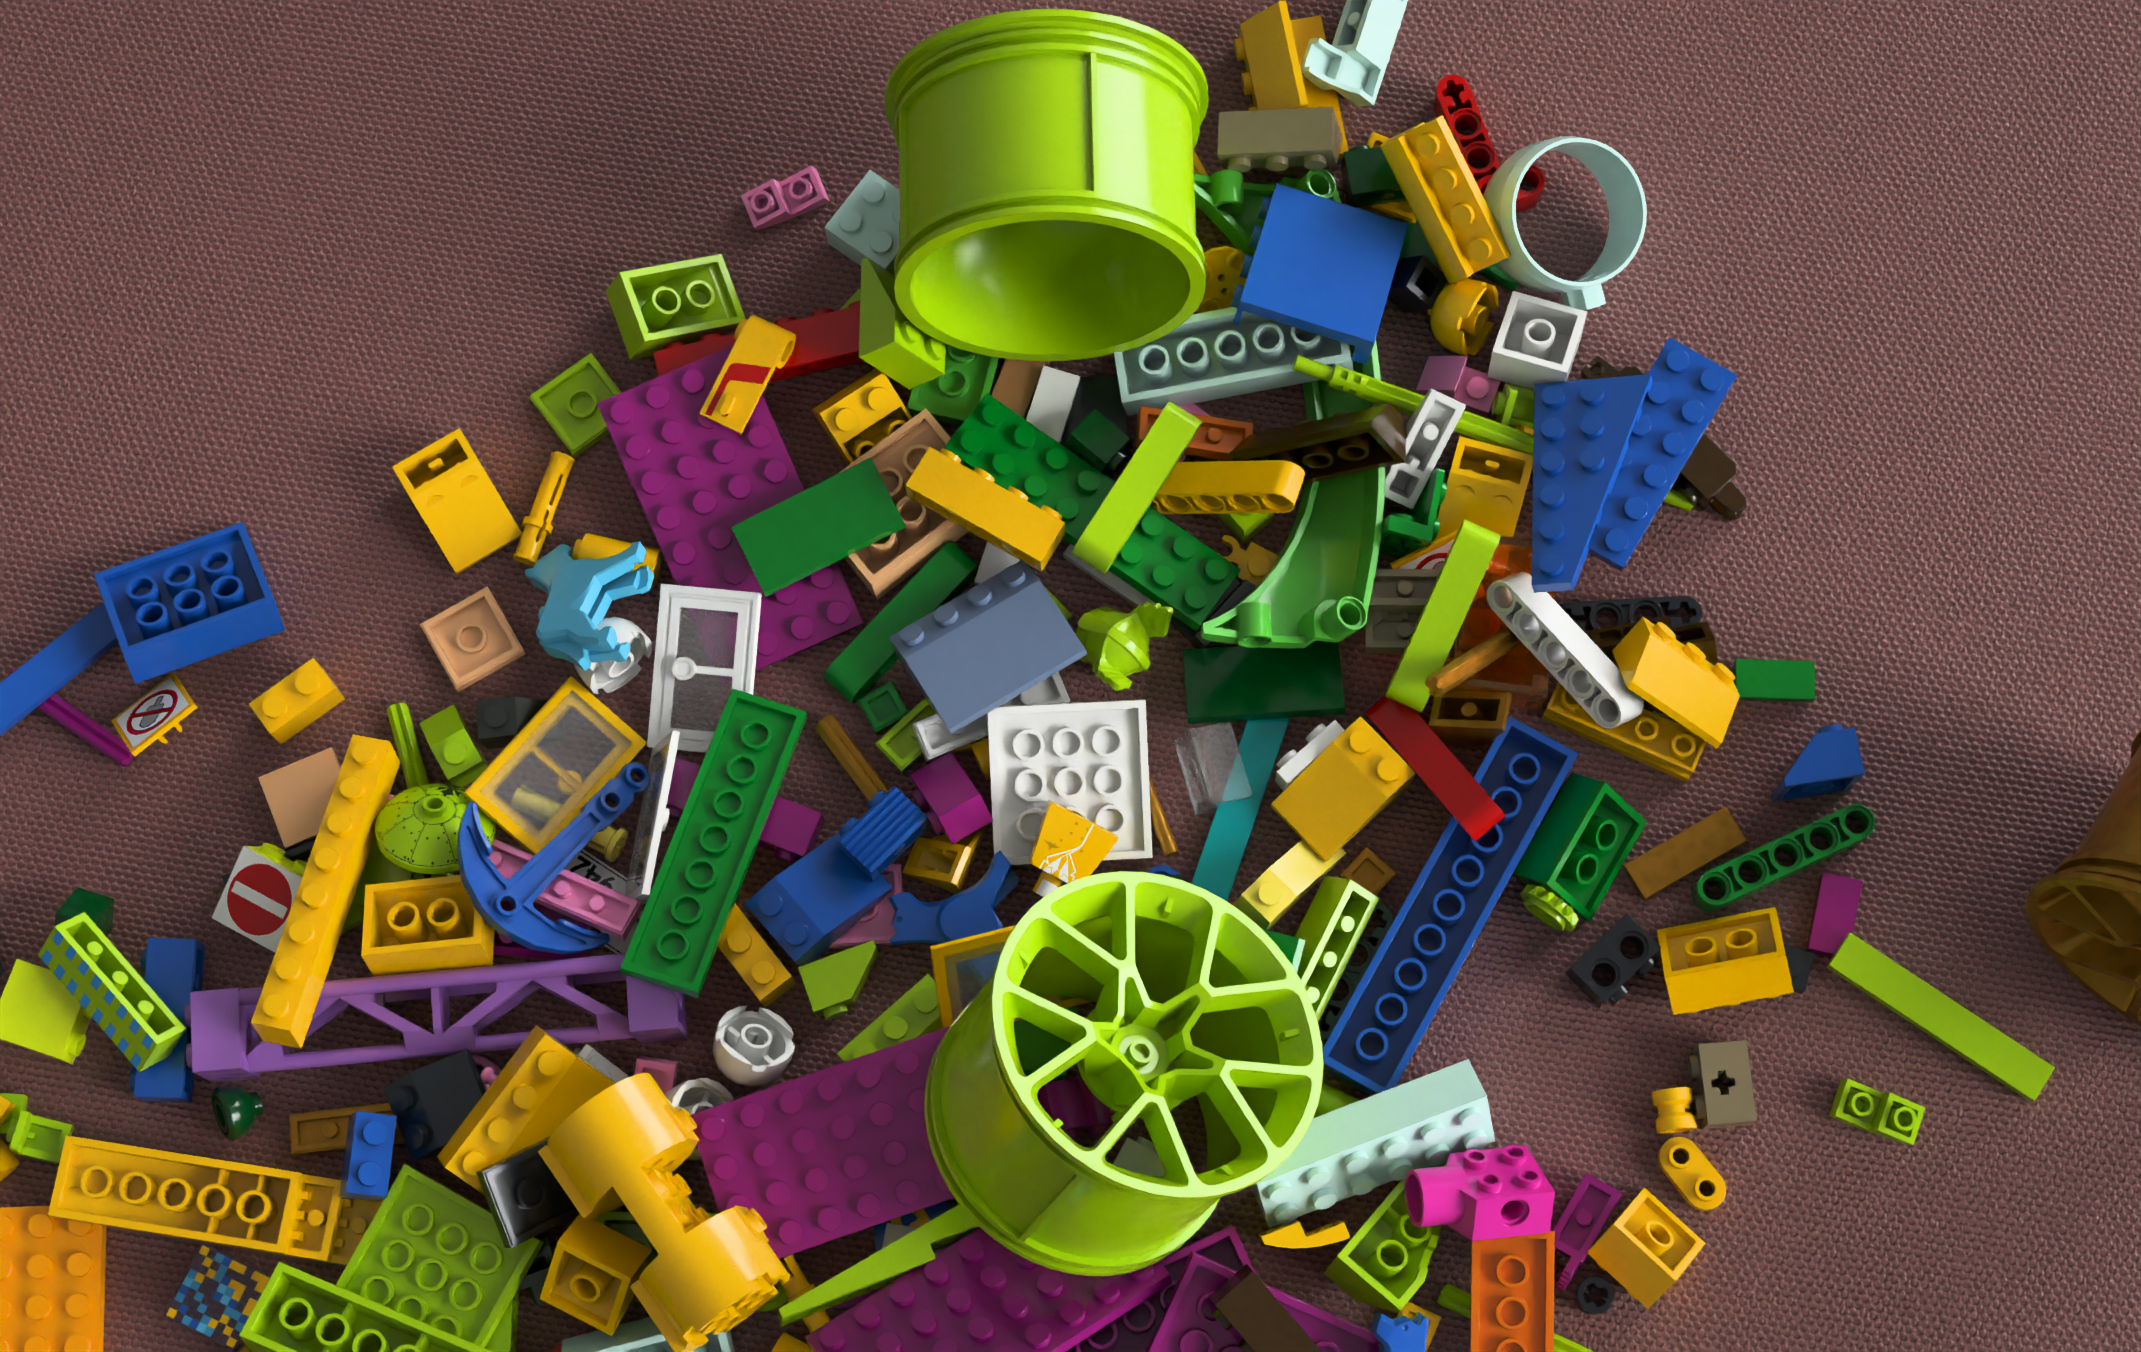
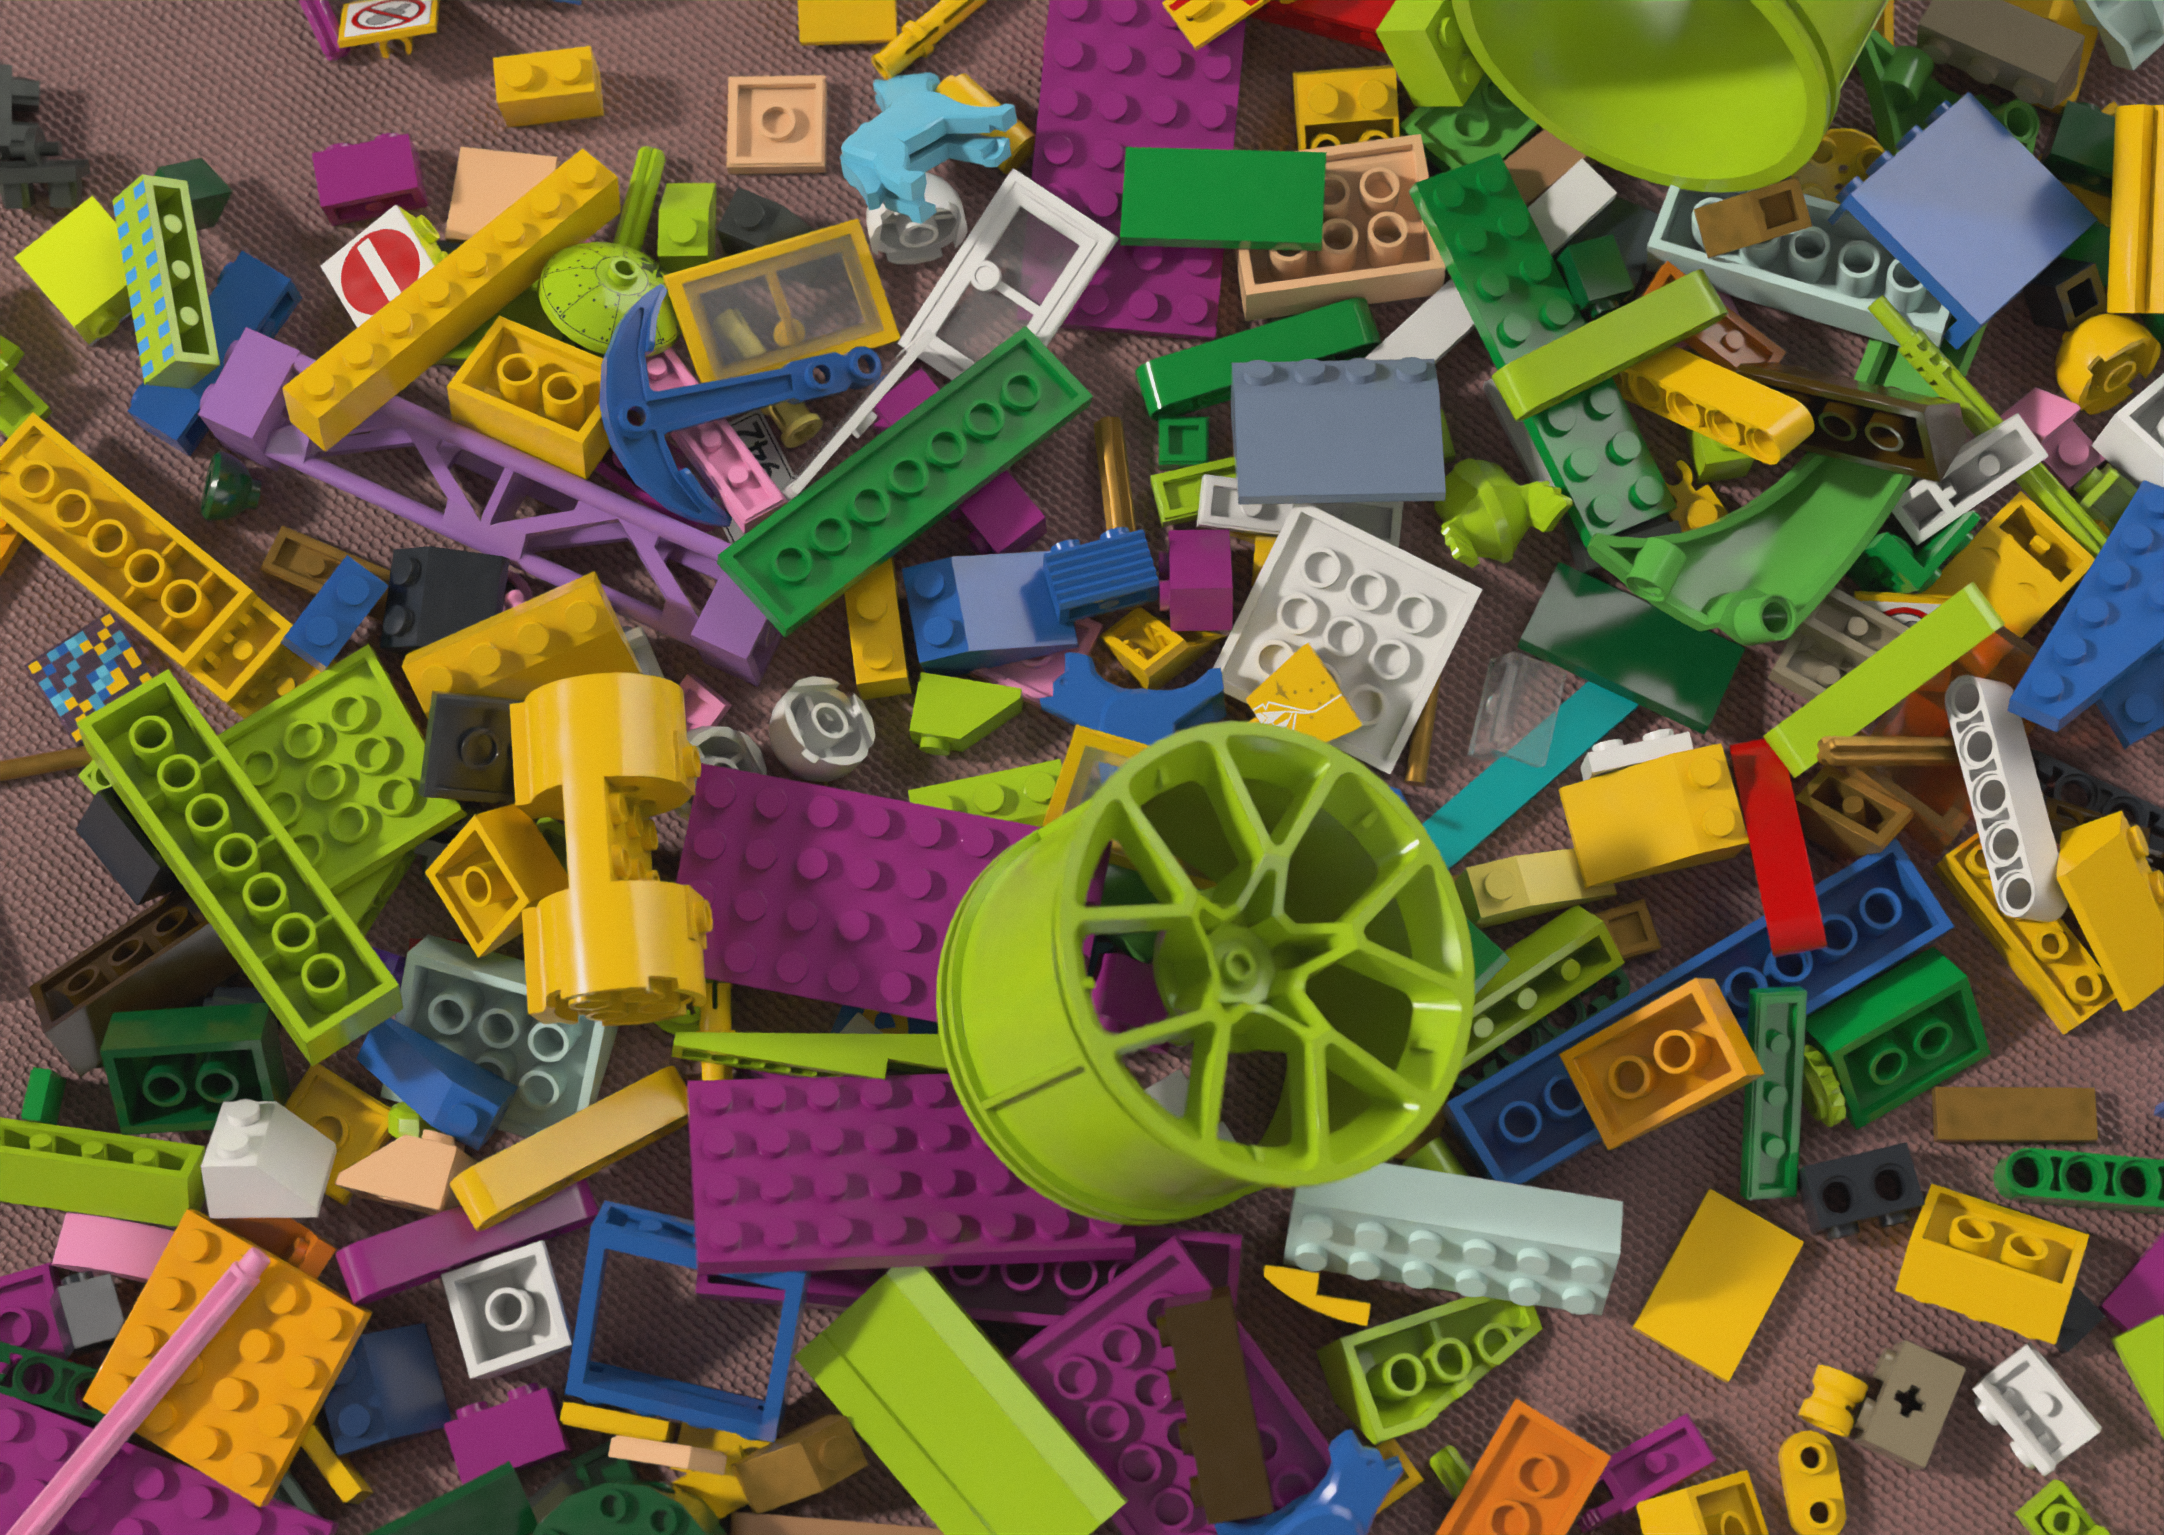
camera: 30 degrees right, 0 degrees up
(206, 835) = (369, 178): none -> magenta brick
(986, 508) = (1423, 276): yellow brick -> none
(1183, 349) = (1753, 217): none -> pearl gold slope
(1442, 953) = (1661, 1062): none -> light orange slope
(1482, 1194) = (1551, 1366): dark pink brick -> none
(1523, 930) = (1775, 1098): none -> green tile
(1558, 1077) = (1717, 1285): none -> yellow tile
(1804, 1041) = (2034, 1409): none -> white bracket

